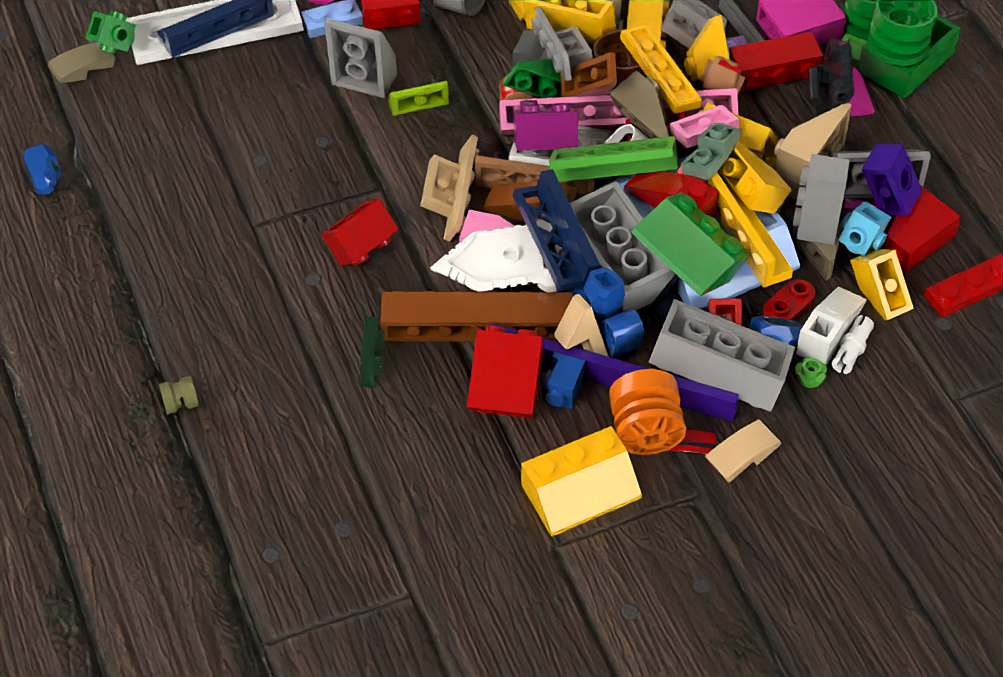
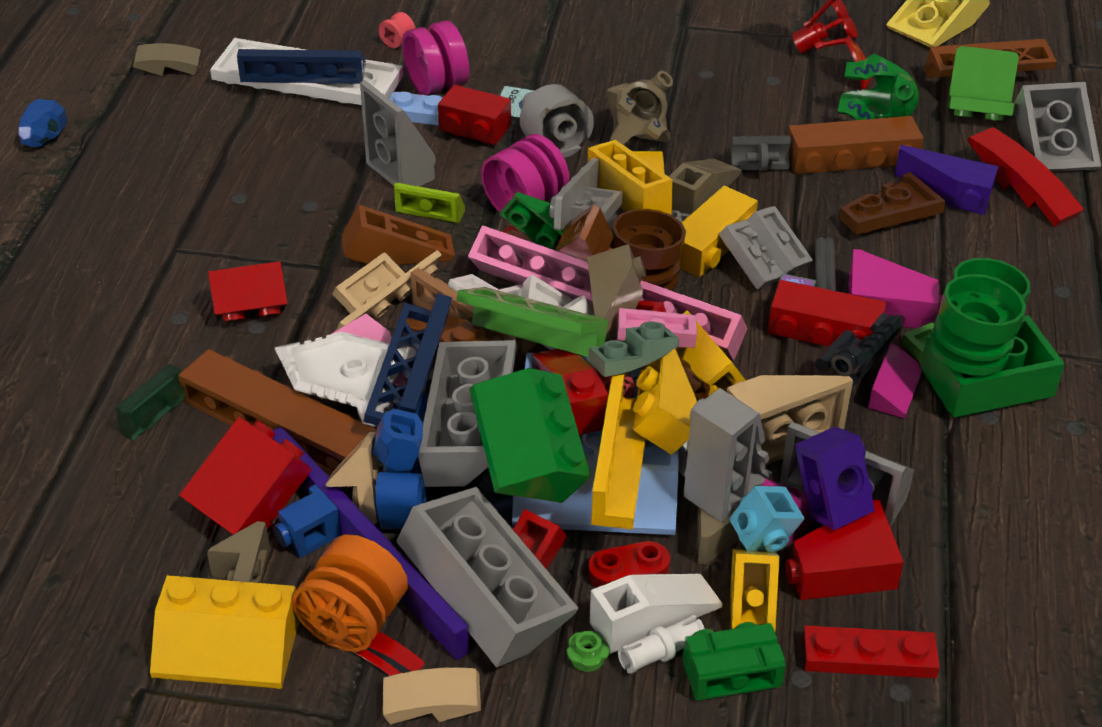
camera: 30 degrees right, 10 degrees down
(111, 31) = (195, 30): green brick -> none
(415, 143) = (405, 242): none -> dark orange slope
(483, 44) = (526, 167): none -> dark pink wheel
(544, 128) = (493, 260): magenta brick -> none
(547, 427) = (241, 555): none -> dark tan slope
(660, 66) = (667, 261): yellow tile -> none
(707, 45) = (752, 276): yellow slope -> none
(722, 74) = (745, 298): medium nougat head -> none
(777, 328) = (577, 580): blue rock -> none
(904, 332) = (733, 661): none -> green brick

